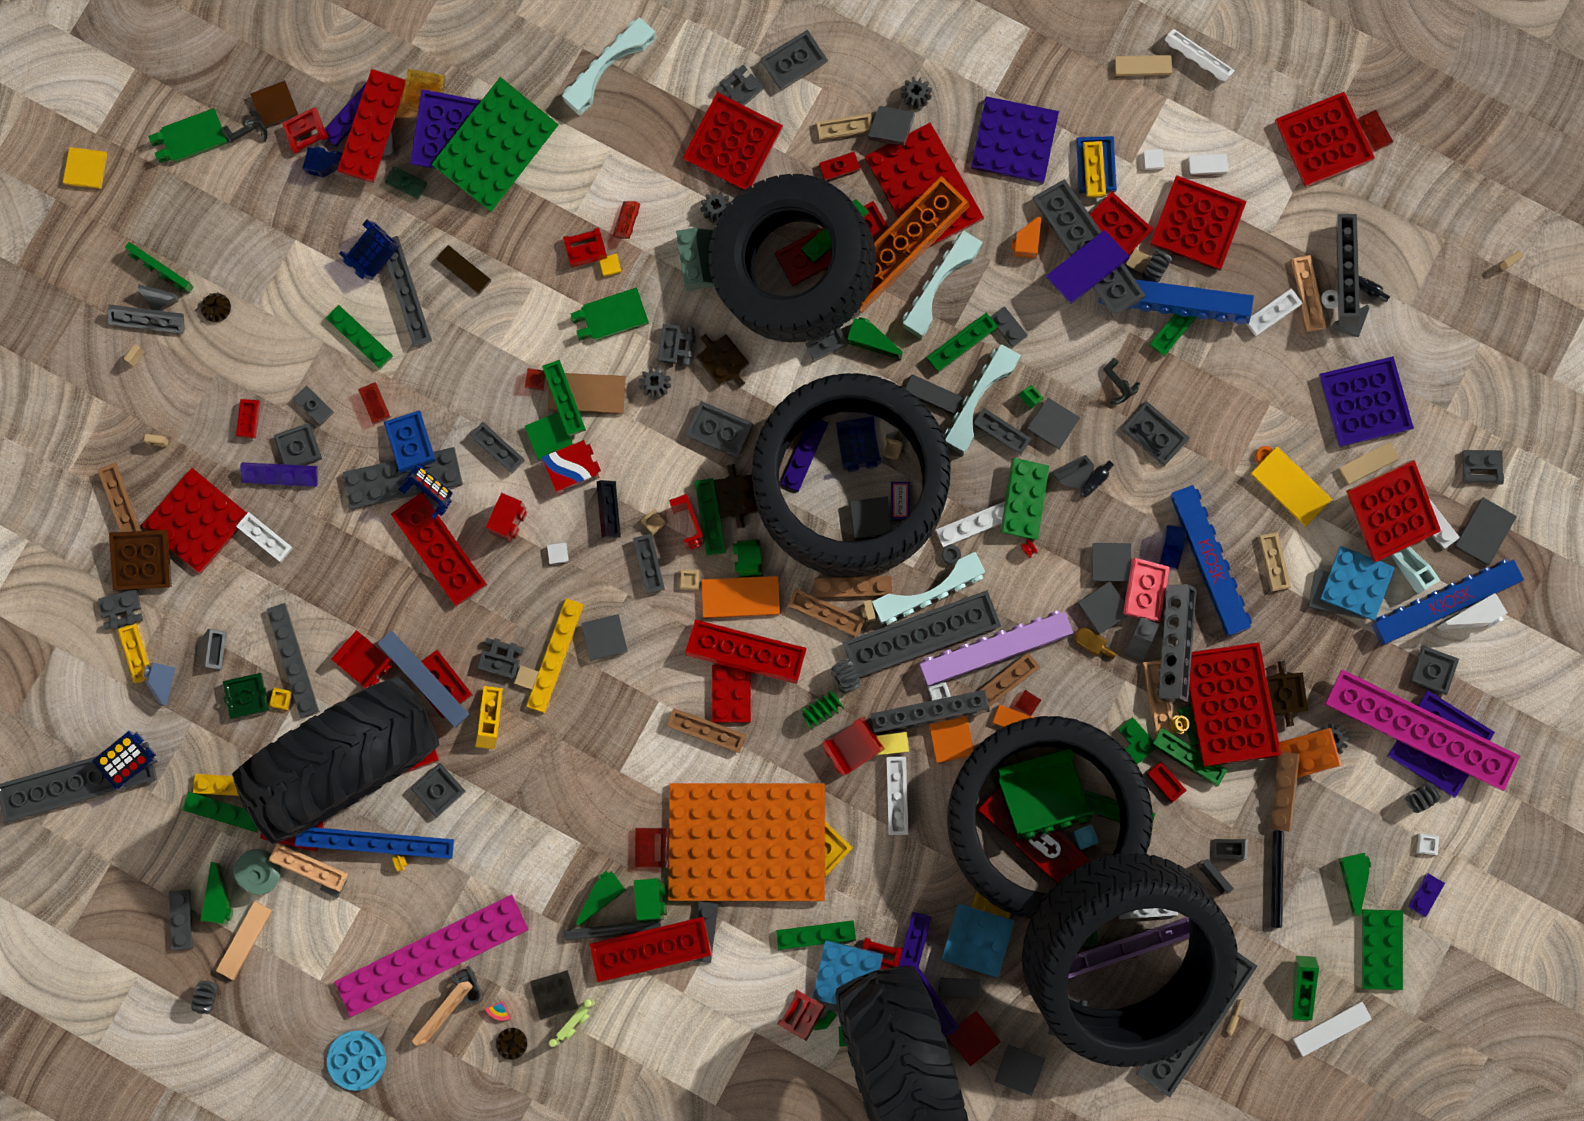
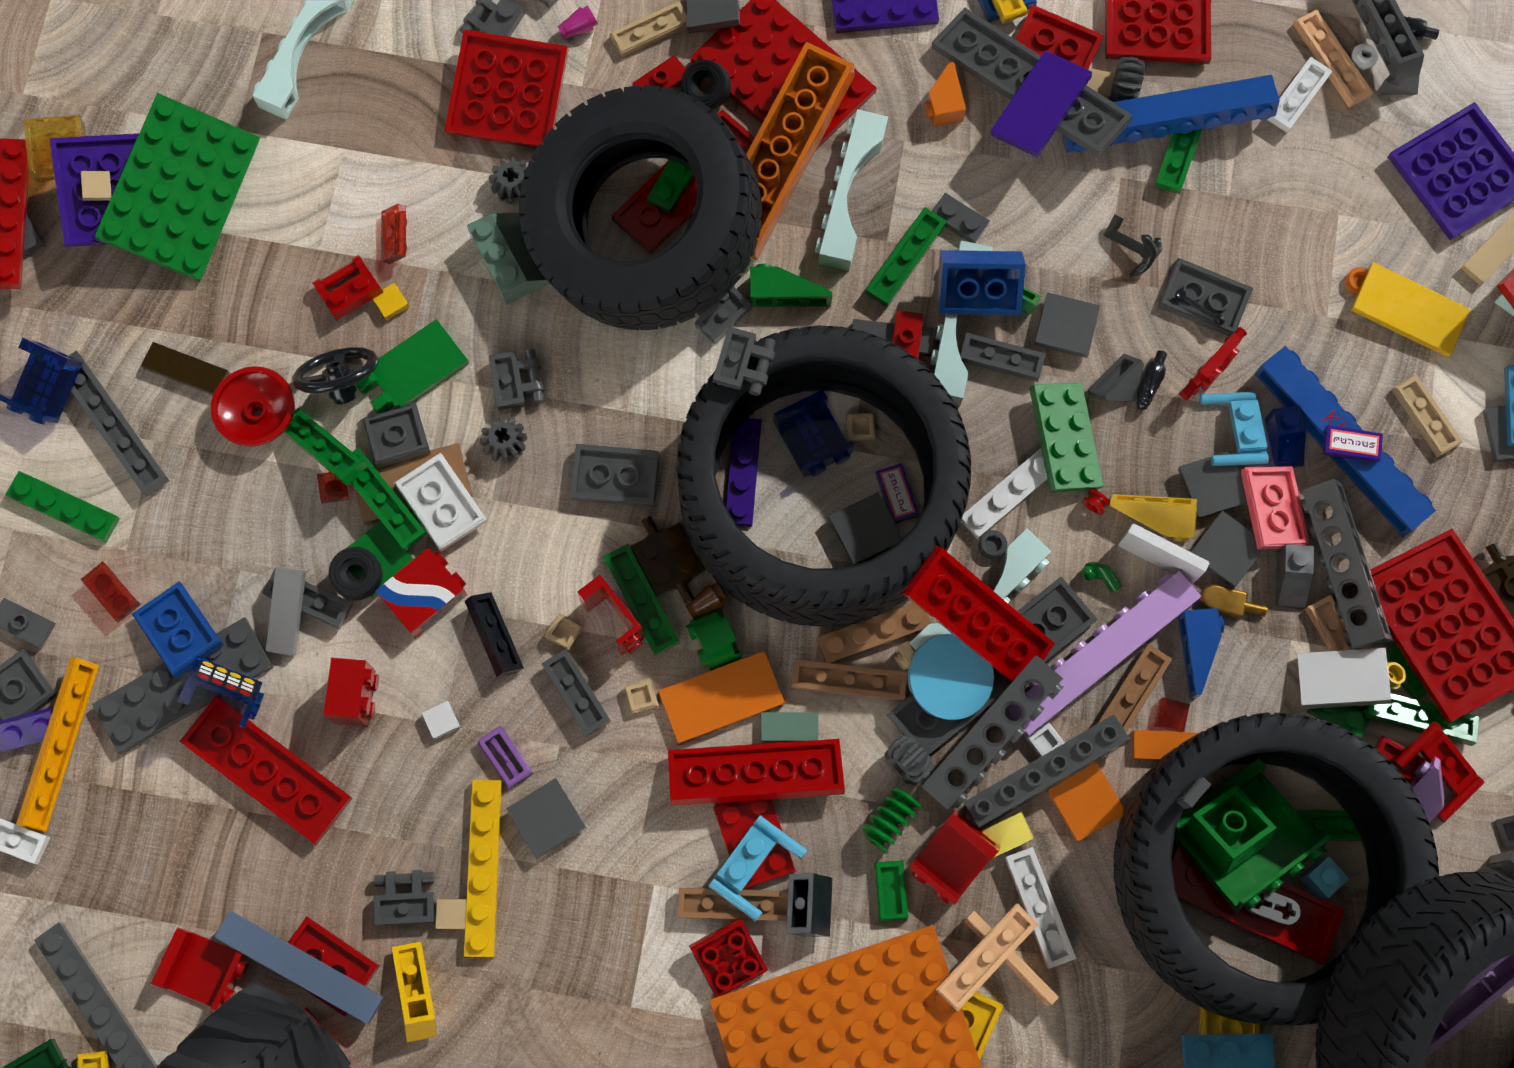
camera: 25 degrees left, 5 degrees down
(314, 491) = (57, 744): none -> light orange tile
(406, 182) = (68, 277): clear green plate -> none
(442, 129) = (95, 185): none -> tan tile
(481, 451) = (285, 611): none -> light grey tile
(492, 301) = (245, 393): none -> red dish
(536, 351) = (324, 448): none -> green plate
(537, 451) = (344, 562): none -> black tyre
(559, 308) = (337, 377): none -> black piece
(586, 358) = (396, 436): none -> dark grey plate
(595, 605) = (518, 777): none -> medium lavender tile
(601, 411) = (440, 502): none -> white tile
(690, 761) = (728, 957): none -> red tile
(722, 360) = (588, 380): dark brown plate -> none
(722, 704) = (746, 861): none -> medium azure plate
(751, 745) = (809, 905): none -> black brick
(752, 531) = (707, 601): none -> reddish brown cone
(777, 630) = (788, 726): none -> sand green tile
(796, 108) = (578, 23): none -> dark pink cone
(807, 754) = (891, 891): none -> green tile
(815, 384) = (735, 357): none -> dark grey plate
(850, 813) = (986, 957): none -> light nougat tile
(860, 697) = (939, 782): none -> dark grey brick
(866, 820) = (1015, 963): none -> light nougat tile
(878, 180) = (707, 69): none -> black tyre
(890, 631) = (949, 678): none -> medium azure tile
(918, 600) = (976, 614): none -> red plate
(942, 398) = (908, 331): none -> red plate
(1002, 377) = (981, 282): none -> blue slope
(1006, 752) = (1193, 792): none -> dark grey tile
(1015, 595) = (1103, 572): none -> green arm
(1033, 786) = (1231, 829): none -> green brick
(1058, 596) = (1162, 553): none -> white tile
(1064, 659) = (1200, 639): none -> blue slope
(1069, 571) = (1163, 514): none -> yellow slope
(1145, 480) = (1215, 365): none -> red plate
(1146, 716) = (1344, 678): none -> white tile
(1147, 530) = (1246, 427): none -> medium azure plate
(1170, 807) = (1429, 787): none -> lavender slope
(1193, 791) = (1455, 769): none -> red plate
(1211, 565) = (1352, 443): none -> tile

